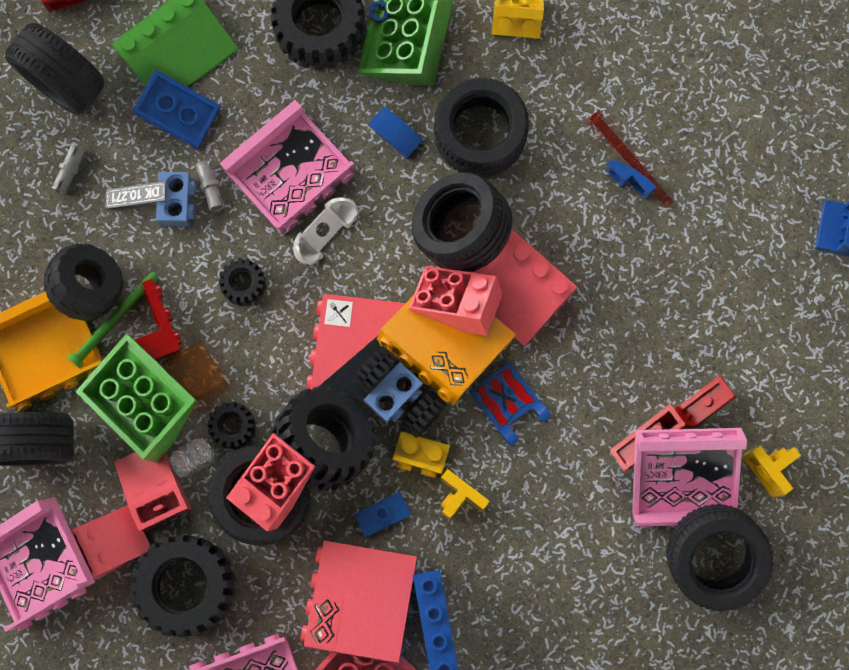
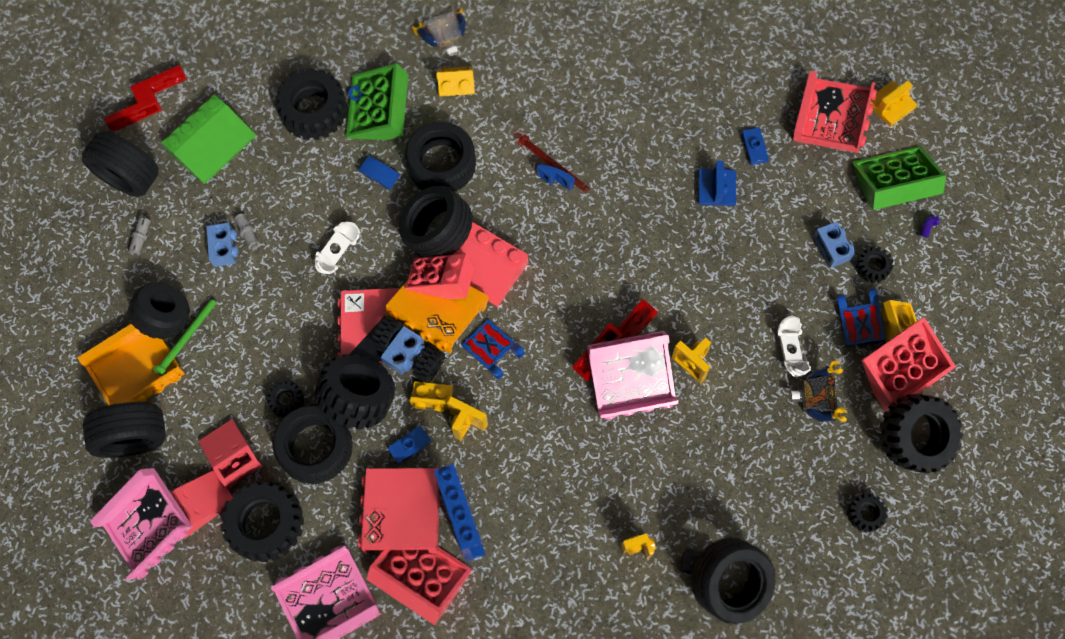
camera: 10 degrees left, 10 degrees down
(135, 194) = (191, 245): sticker -> none
(138, 399) = (210, 387): bright green slope -> none
(164, 341) = (220, 349): red bracket -> none
(176, 109) = (214, 182): blue tile -> none
(192, 458) = (257, 426): clear gear -> none
(195, 371) = (250, 367): clear orange tile -> none
(238, 267) = (284, 304): black tyre -> none
(272, 483) = (319, 425): coral slope -> none
(287, 167) = (302, 209): bright pink panel -> none
(739, 587) = (692, 439): black tyre -> none

